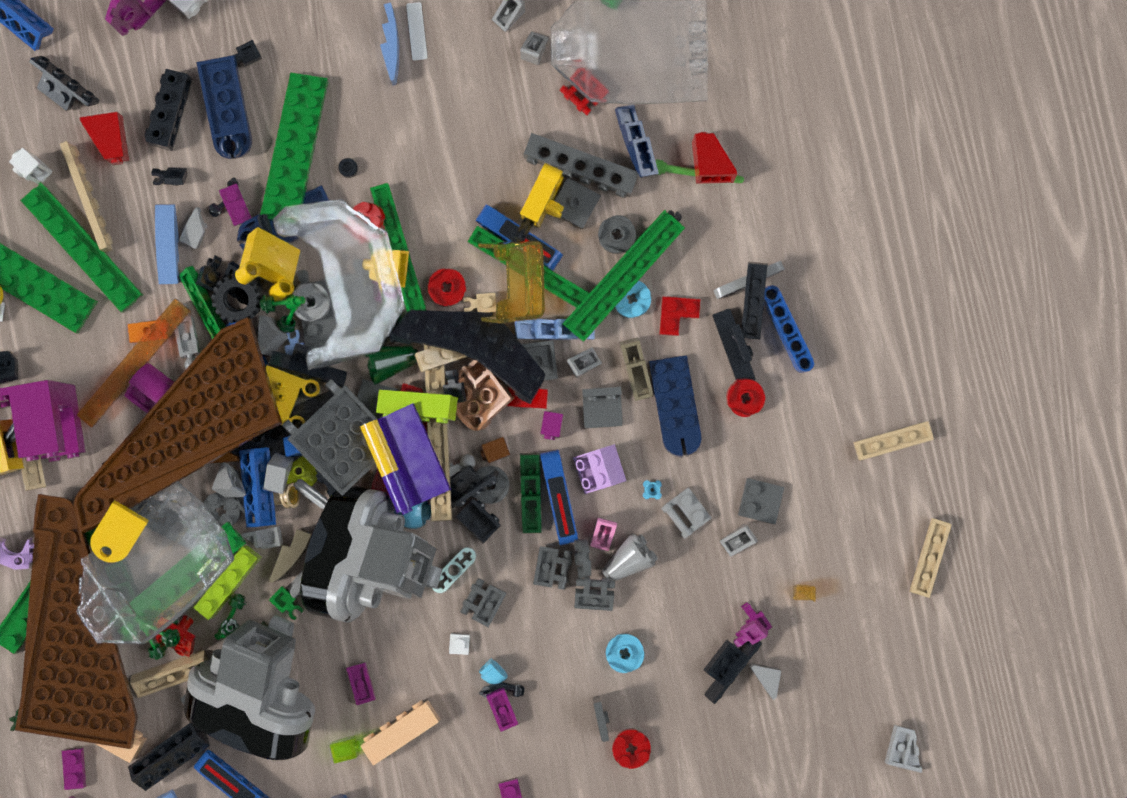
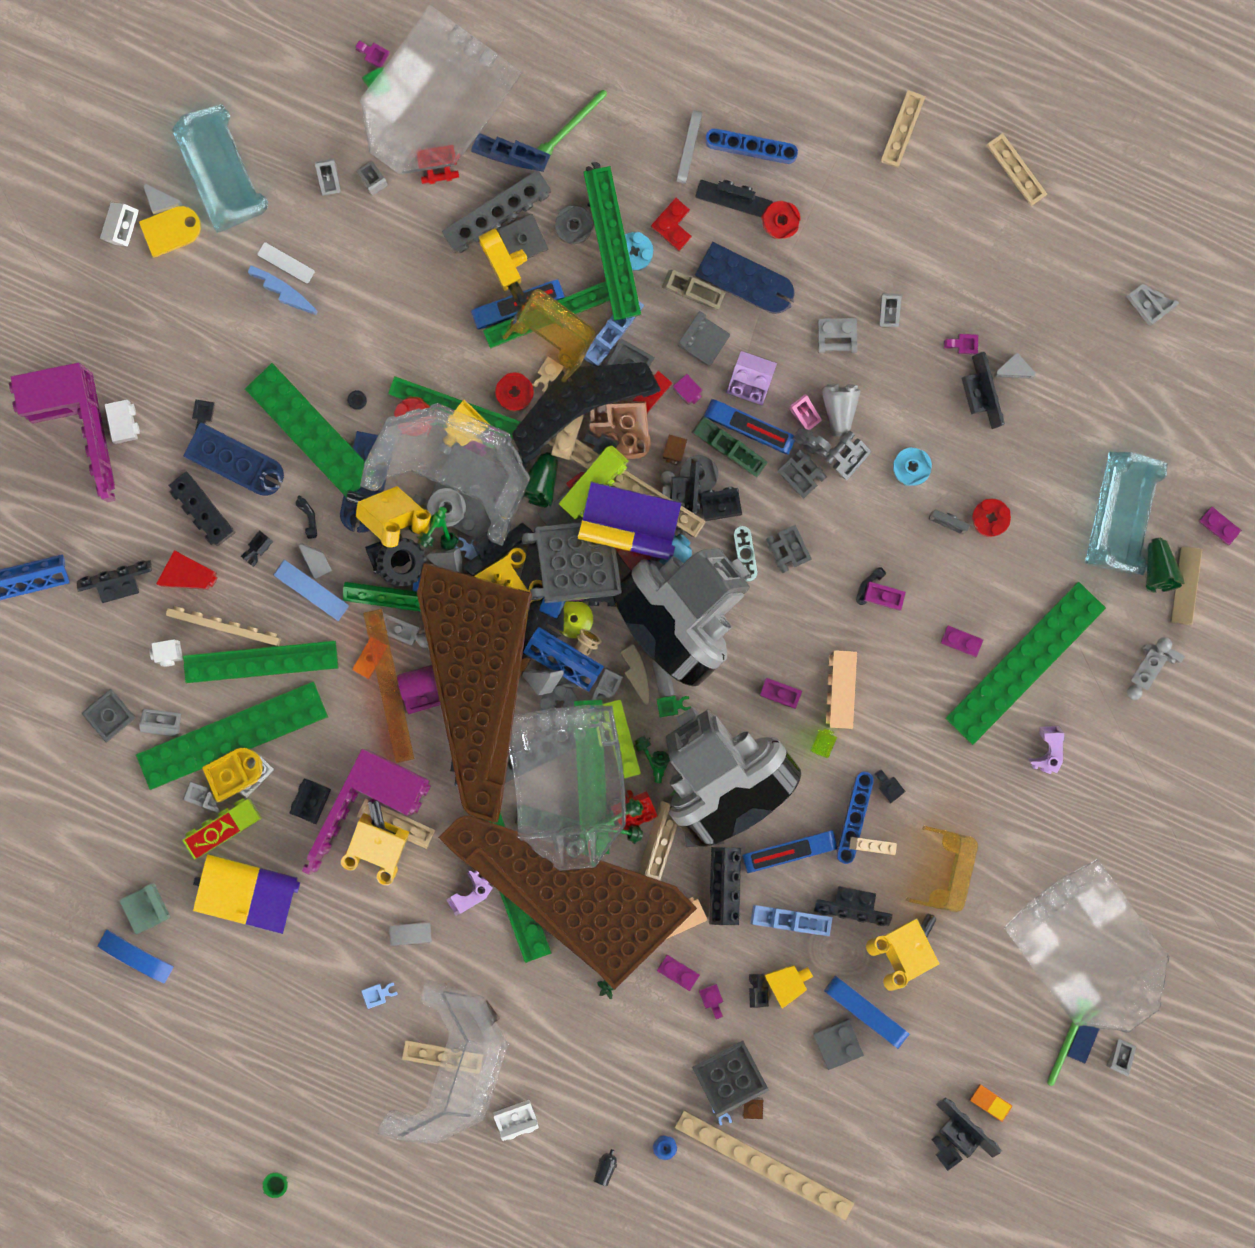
camera: 50 degrees left, 0 degrees up
(117, 531) = (519, 790): yellow tile -> none
(208, 275) = (361, 574): black plate -> none
(235, 204) = (320, 512): magenta plate -> none
(278, 473) = (565, 633): light grey slope -> none
(311, 493) = (601, 620): light grey axle -> none
(459, 644) = (807, 592): white plate -> none
(493, 672) = (850, 582): medium azure piece -> none
(584, 362) = (657, 327): light grey slope -> none
(656, 486) = (804, 349): medium azure plate -> none
(711, 160) = (571, 105): red slope -> none
(751, 632) = (969, 353): magenta plate -> none
(754, 299) = (708, 154): black plate -> none
(761, 501) = (872, 269): dark grey plate -> none
(804, 592) = (970, 289): clear yellow slope -> none

